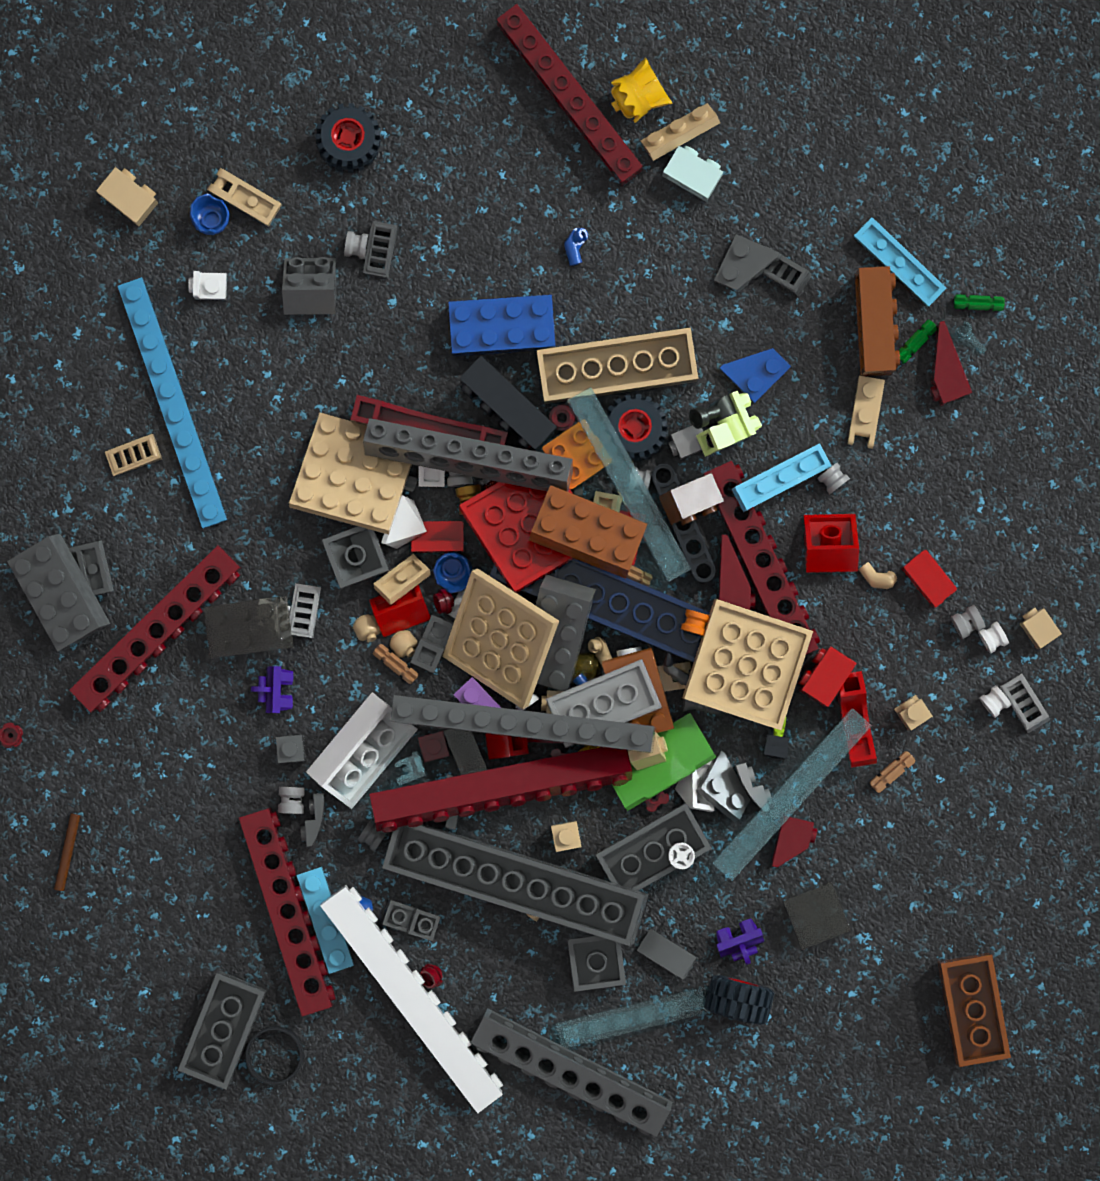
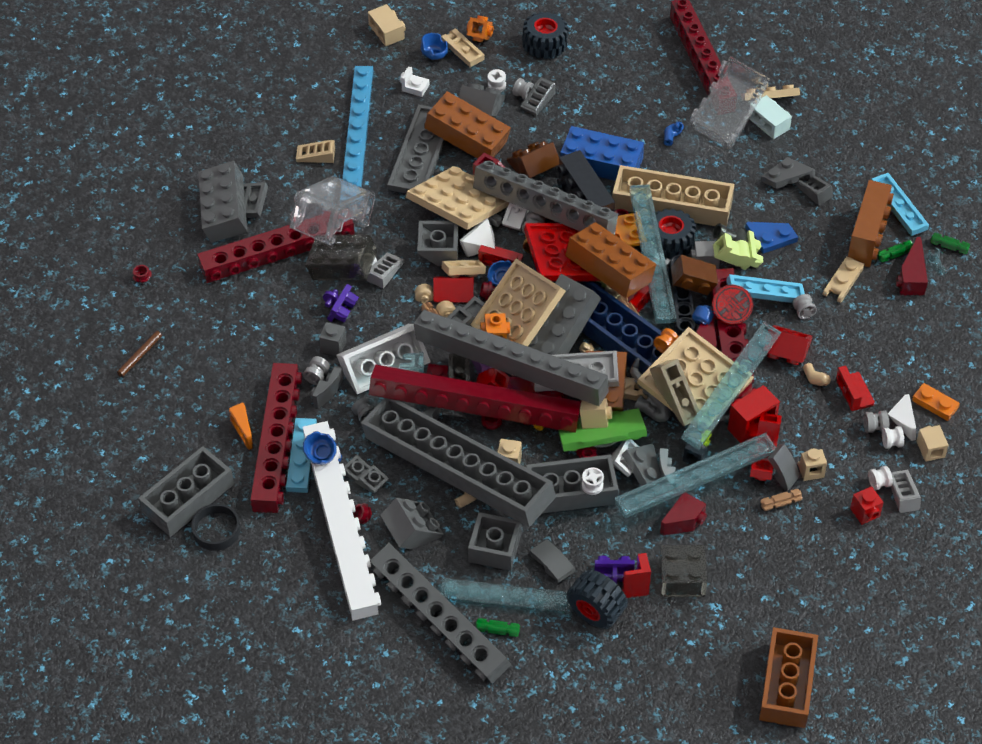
camera: 20 degrees right, 35 degrees down
(209, 572) = (327, 205): none -> clear windscreen
(235, 905) = (240, 422): none -> orange slope
(257, 160) = (474, 25): none -> orange brick
(267, 400) = (417, 155): none -> dark grey plate
(315, 352) = (466, 126): none -> dark orange brick
(316, 246) = (497, 79): none -> white wheel
(357, 937) = (319, 448): none -> blue hair
(418, 365) = (534, 159): none -> reddish brown slope
(484, 693) = (496, 324): none -> orange brick
(493, 969) = (411, 523): none -> dark grey slope
(638, 92) = (753, 58): yellow hat -> none
(639, 198) = (730, 102): none -> clear windscreen
(639, 1060) = (498, 627): none -> green axle
(720, 550) = (703, 315): none -> blue piece
(734, 702) = (675, 390): none -> dark tan slope
(753, 530) = (732, 304): none -> tile
(778, 947) = (637, 581): none -> red panel
(794, 662) = (730, 385): none -> clear light blue plate
(884, 736) = (784, 464): none -> dark grey slope
(992, 748) = (866, 505): none -> red brick
(997, 605) = (903, 416): none -> white slope
(1027, 560) = (935, 401): none -> orange plate

